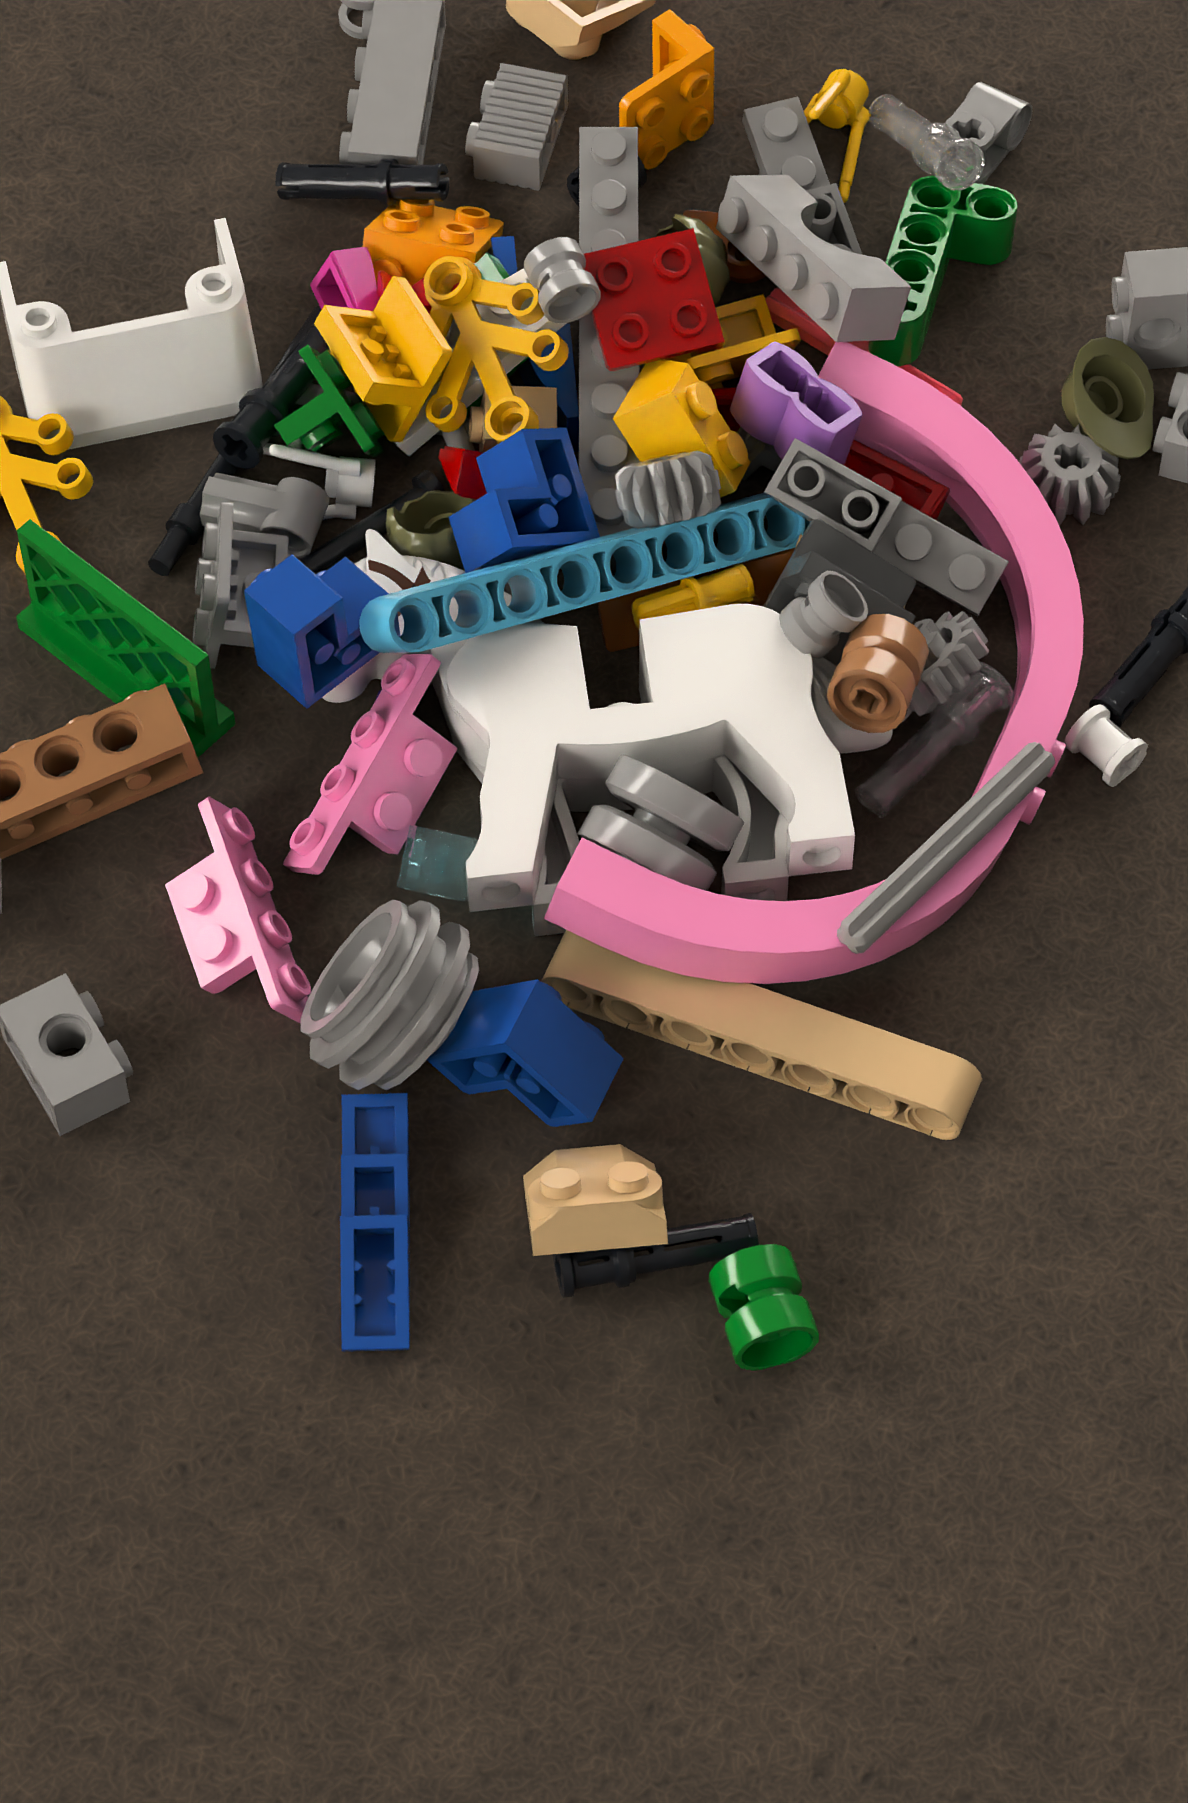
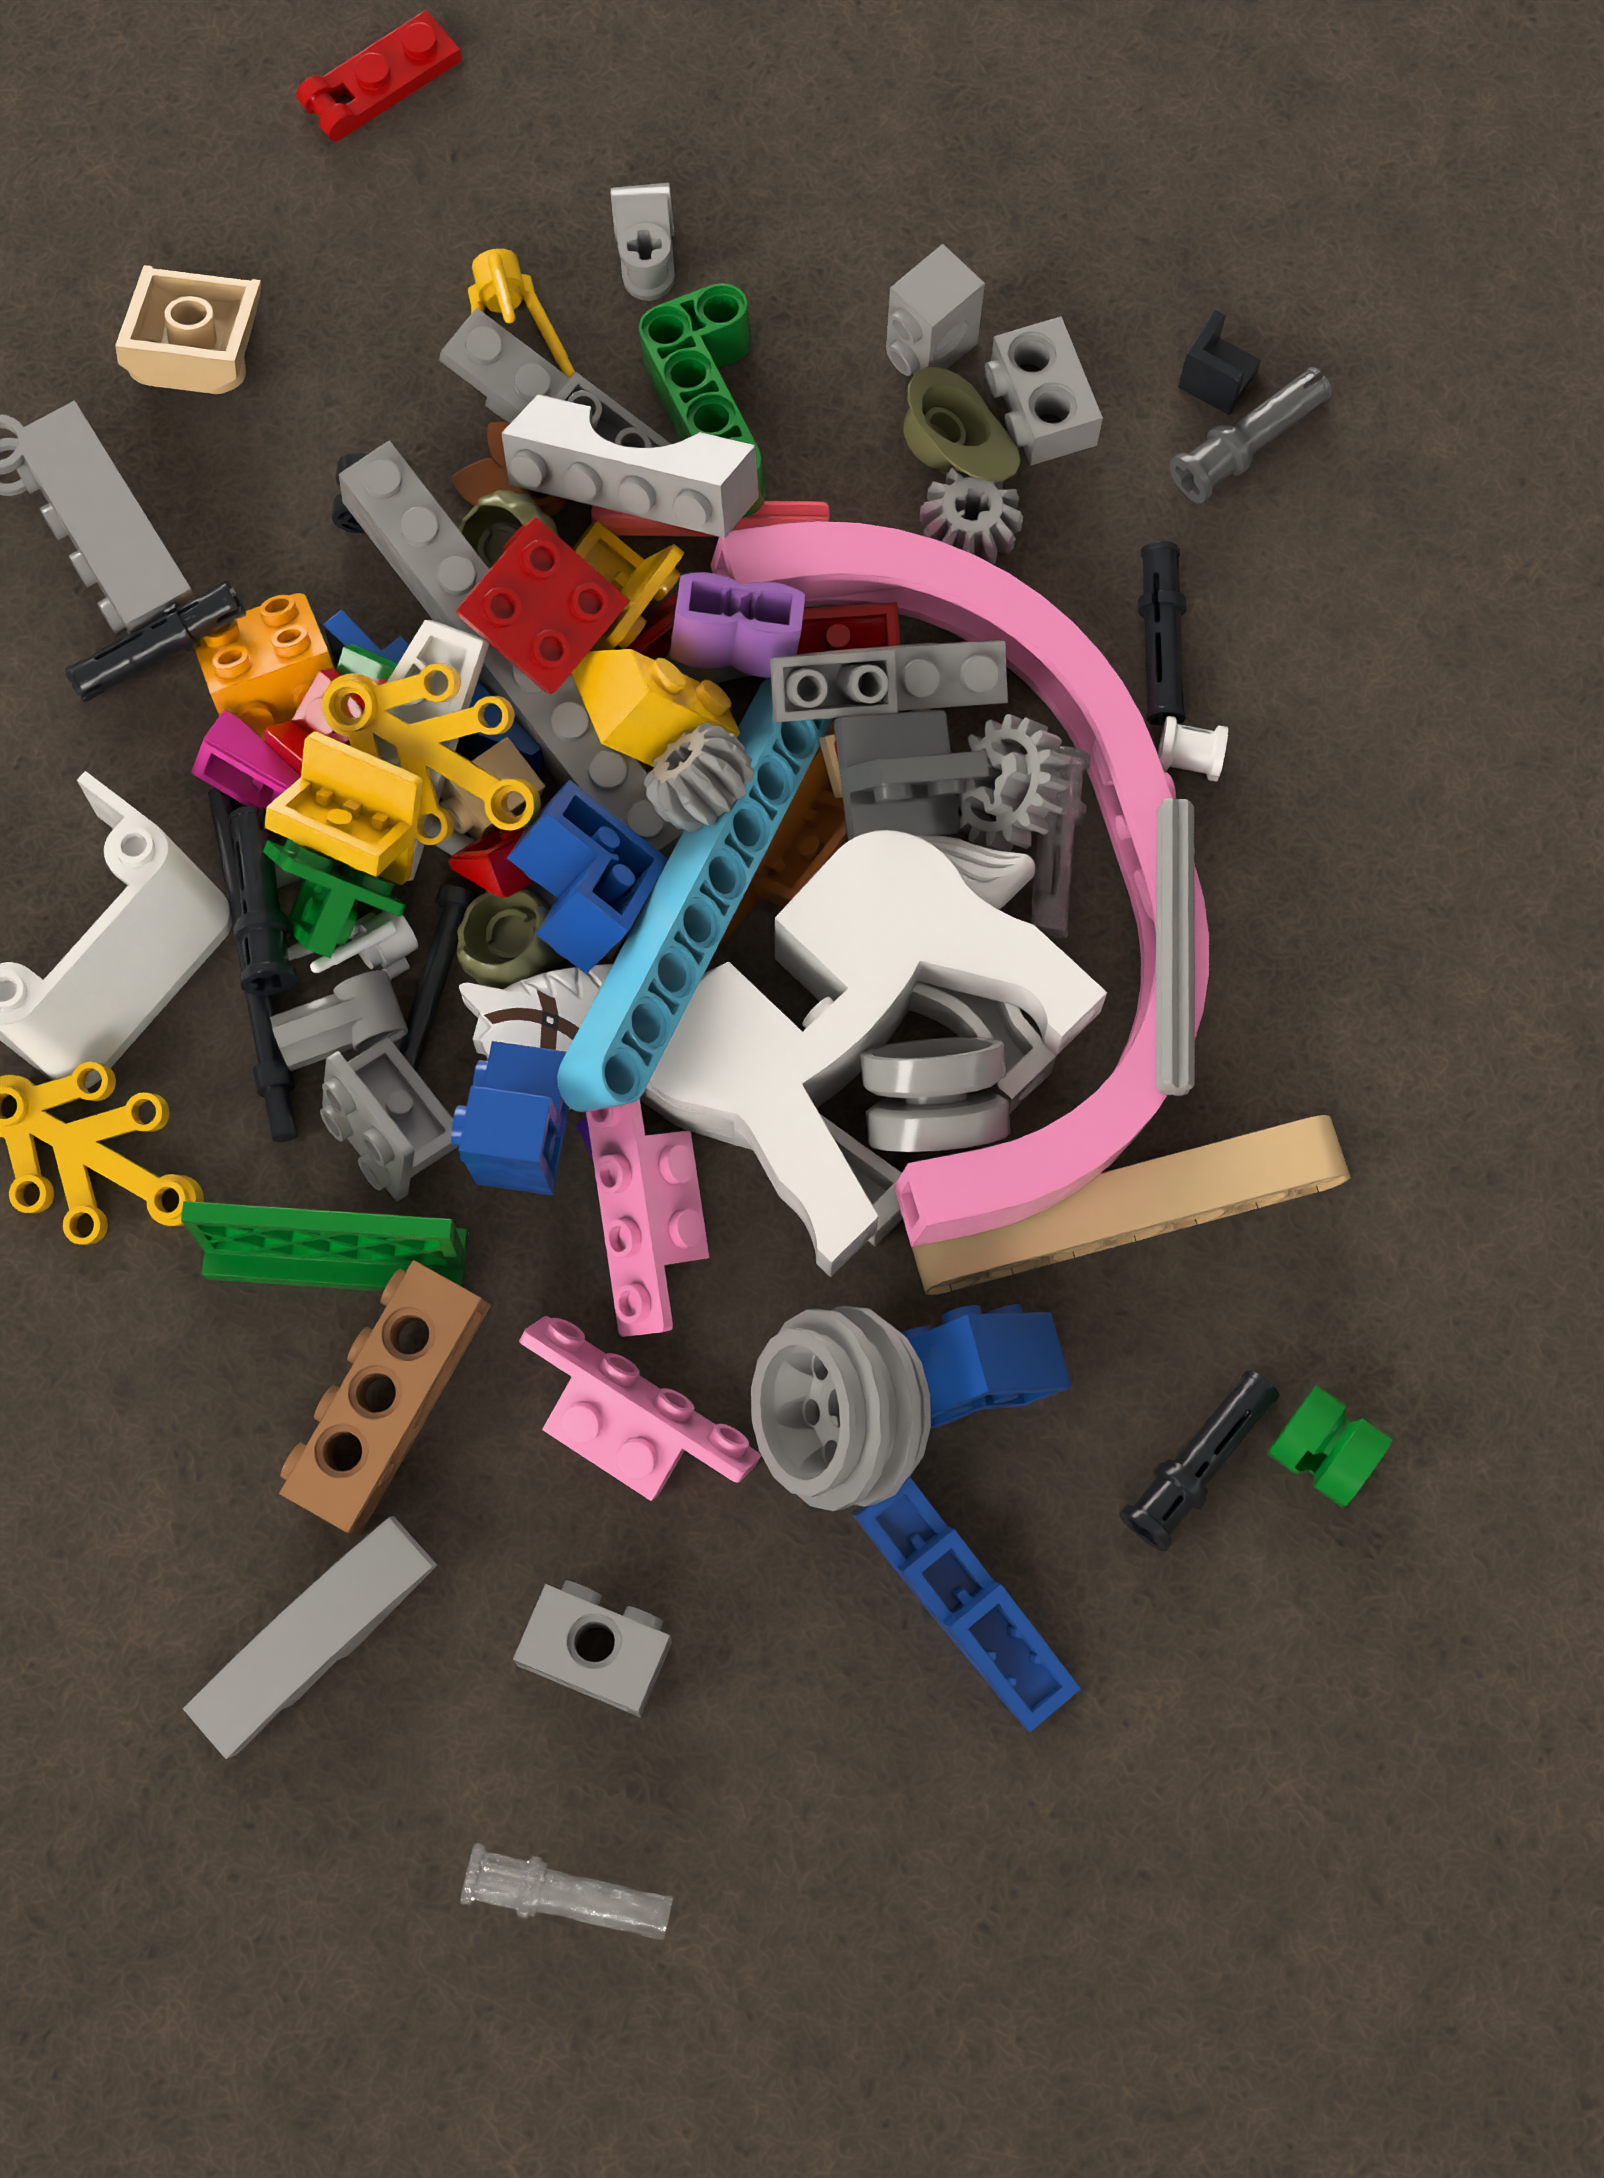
camera: 40 degrees left, 15 degrees up
(435, 863) = (761, 1255): clear light blue bracket -> none
(518, 125) = (245, 490): light grey brick -> none
(557, 271) = (466, 645): light grey wheel -> none
(594, 1201) = (1131, 1456): tan slope -> none
(679, 96) = (361, 352): light orange bracket -> none
(714, 590) = (781, 855): yellow axle -> none
(819, 618) = (930, 803): light grey wheel -> none
(878, 673) = (1006, 827): medium nougat wheel -> none
(934, 146) = (633, 281): clear pin -> none

